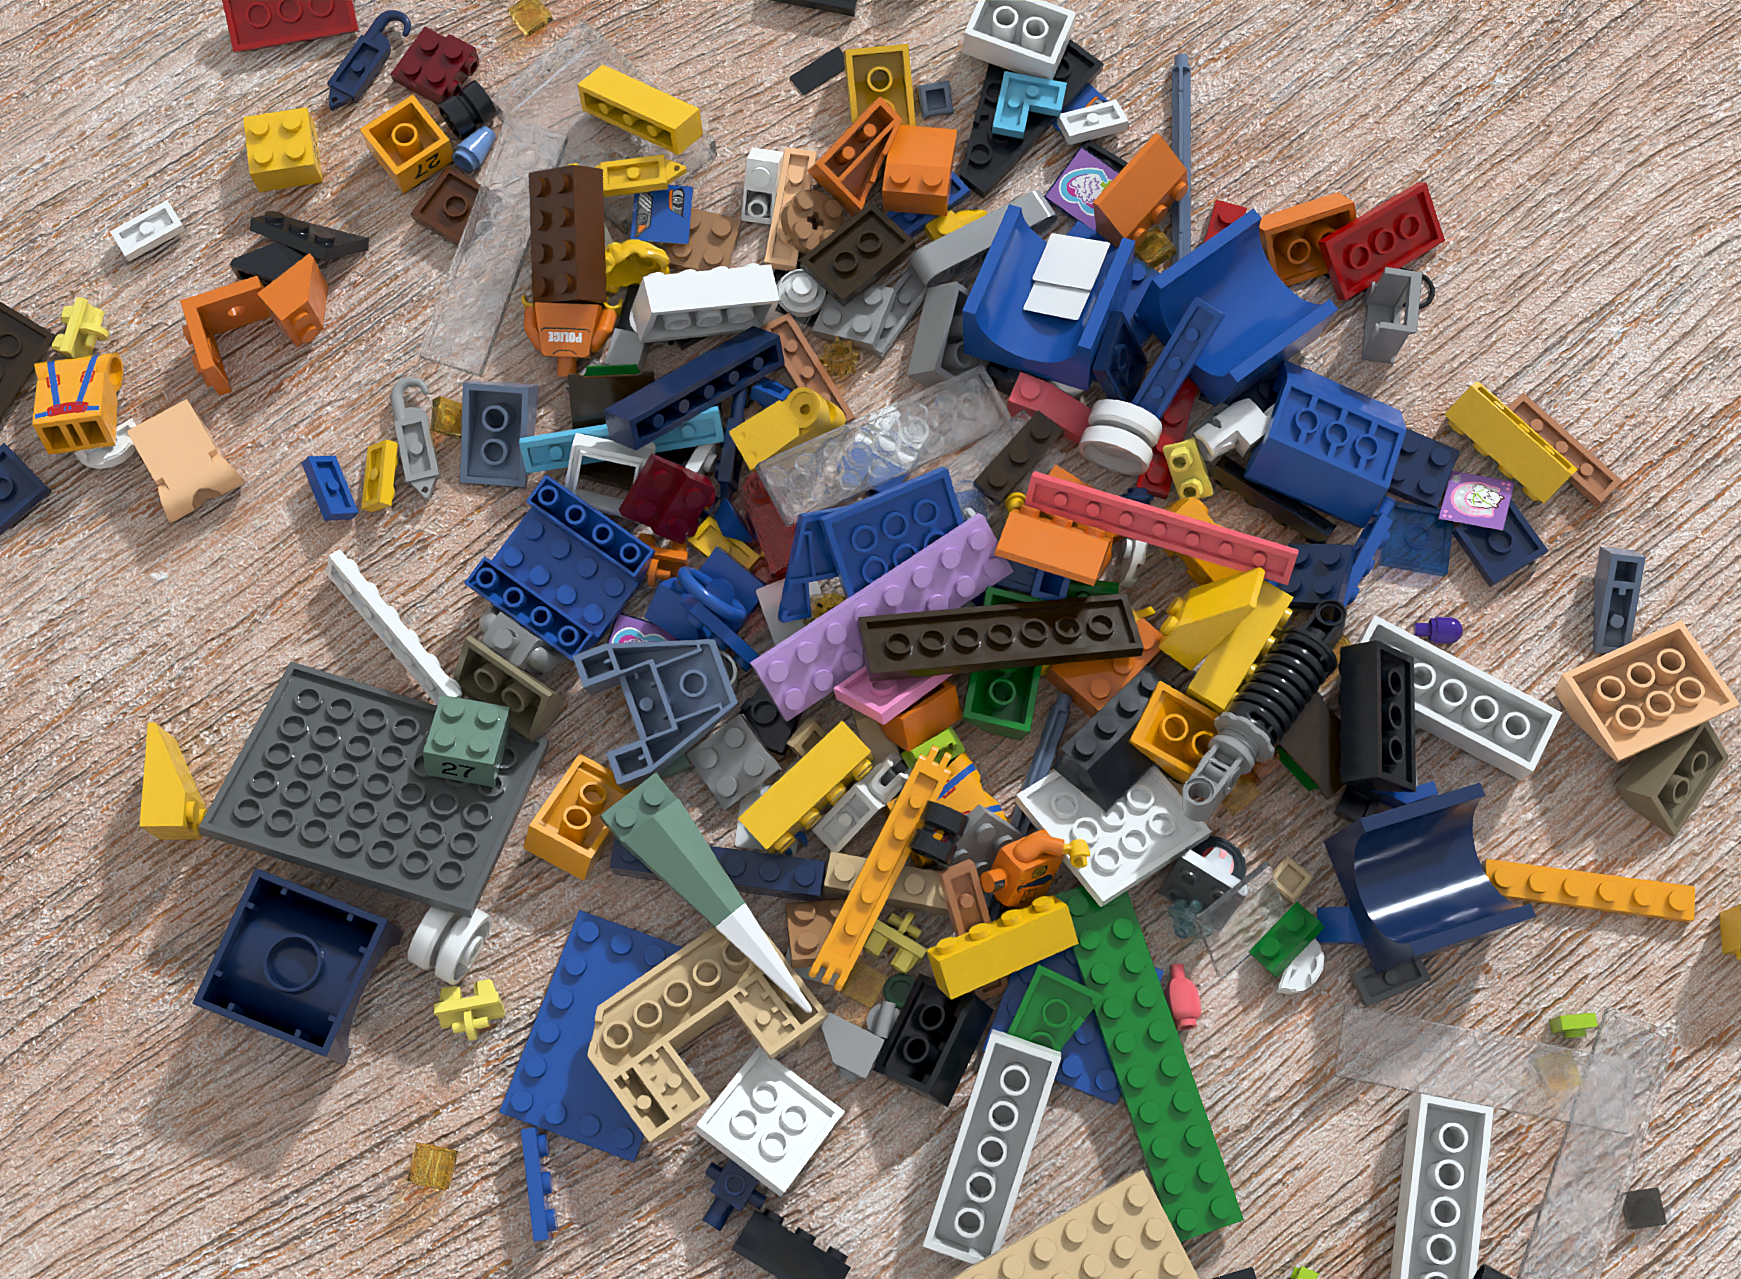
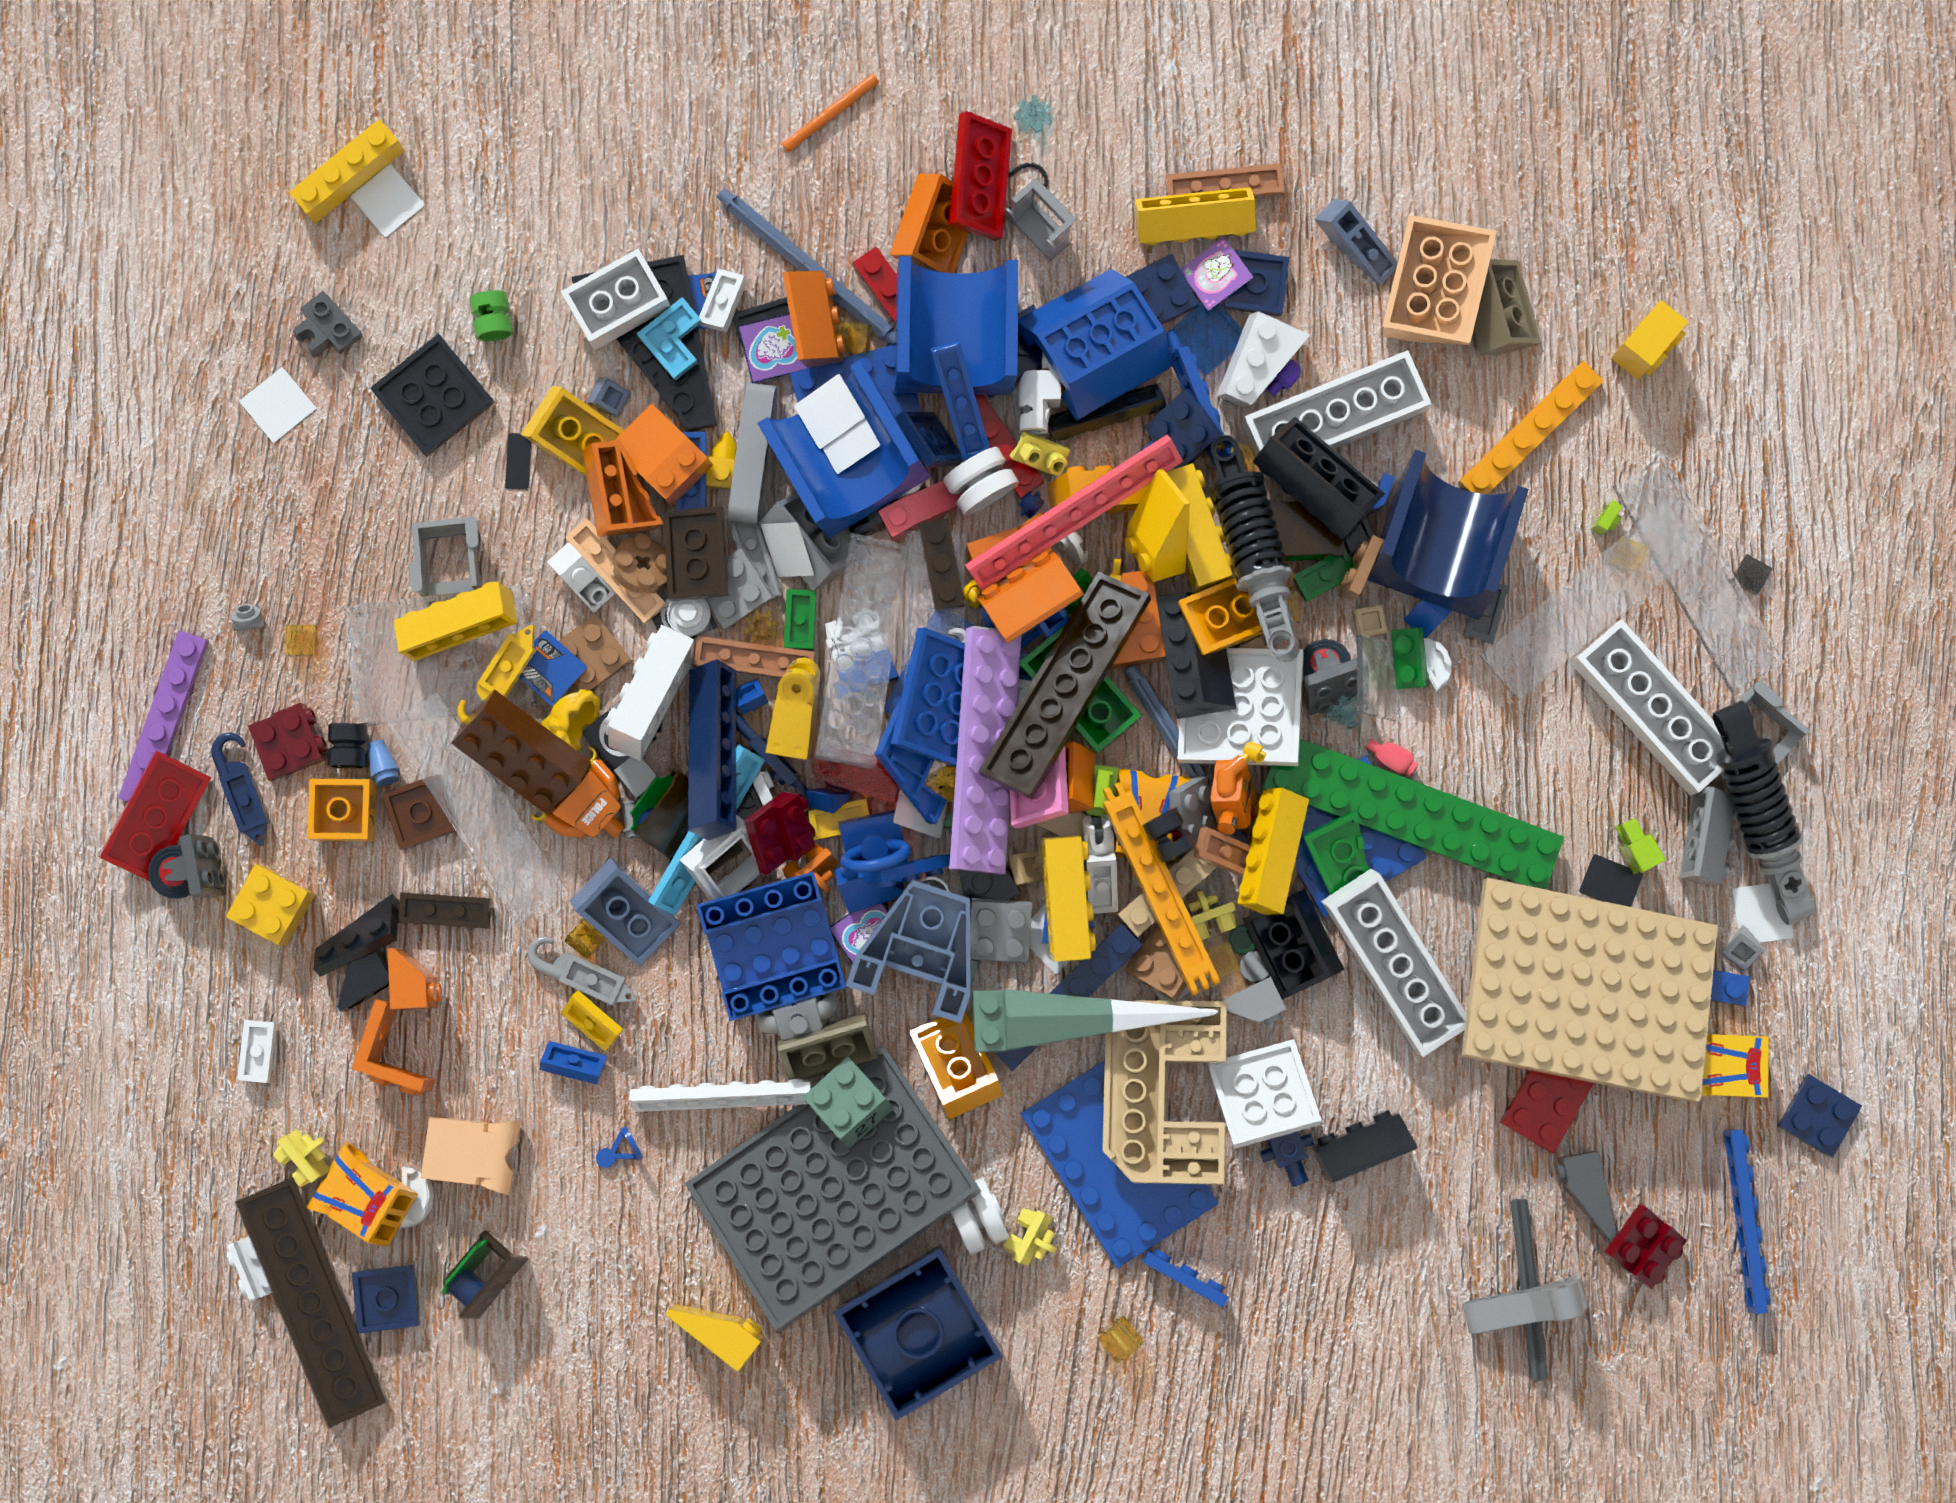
camera: 50 degrees left, 10 degrees up
(60, 561) = (469, 1288): none -> piece
(265, 64) = (187, 869): none -> dark grey plate
(267, 581) = (606, 1157): none -> blue piece
(386, 288) = (445, 910): none -> dark brown plate
(665, 55) = (437, 529): none -> light grey piece
(873, 385) = (800, 619): none -> green plate
(924, 325) = (787, 549): none -> white sticker
(1295, 804) = (1322, 576): none -> green plate
(1317, 825) = (1364, 558): none -> medium nougat plate
(1325, 91) = (829, 113): none -> orange bar
(1441, 591) = (1259, 357): none -> white wedge
(1472, 249) = (1033, 114): none -> clear light blue plant

